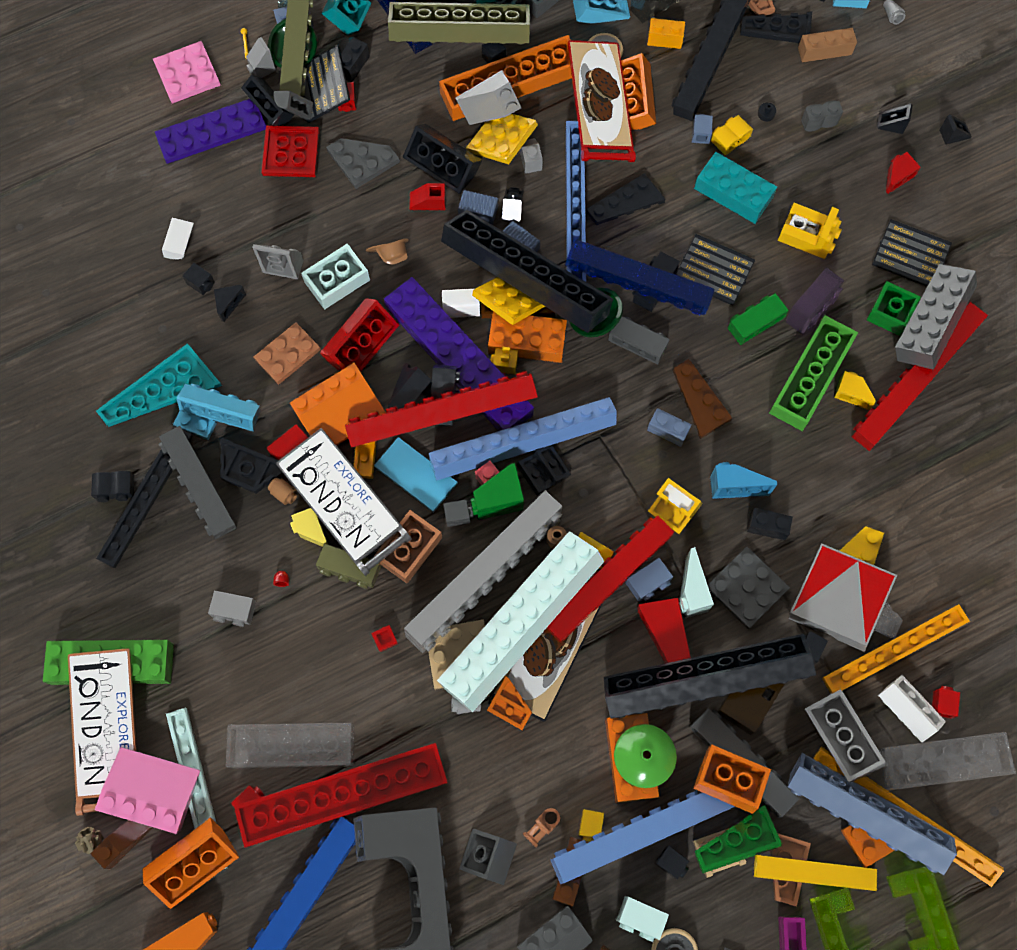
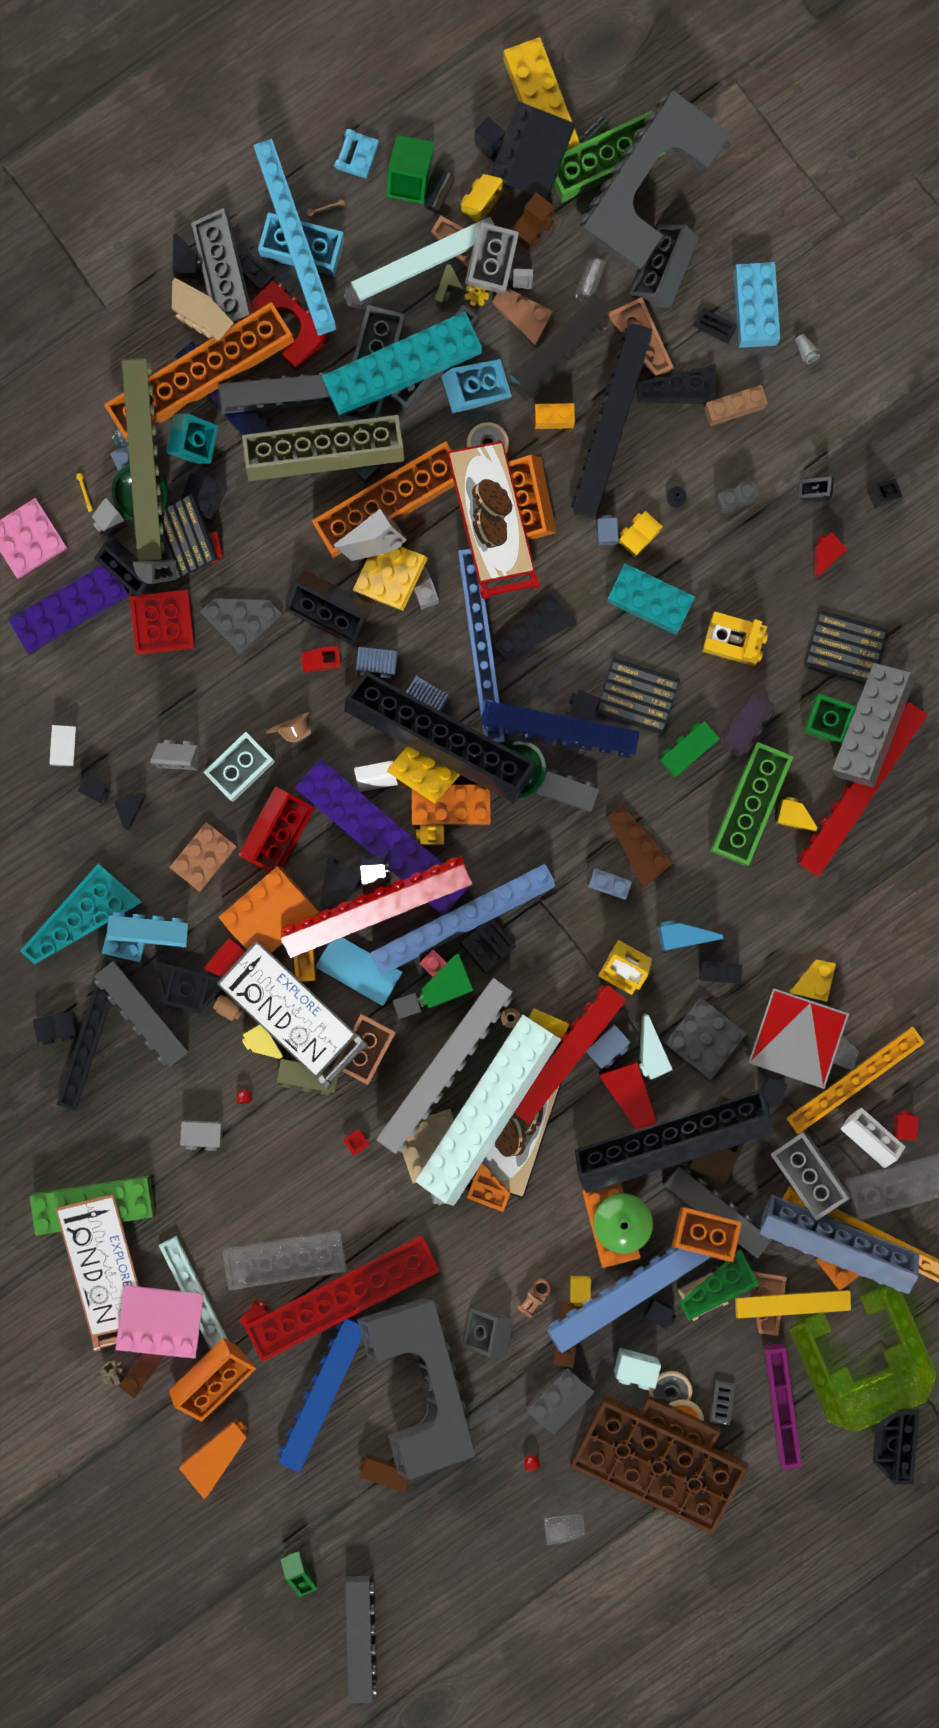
camera: 10 degrees left, 15 degrees up
(512, 204) = (413, 653): slope -> none

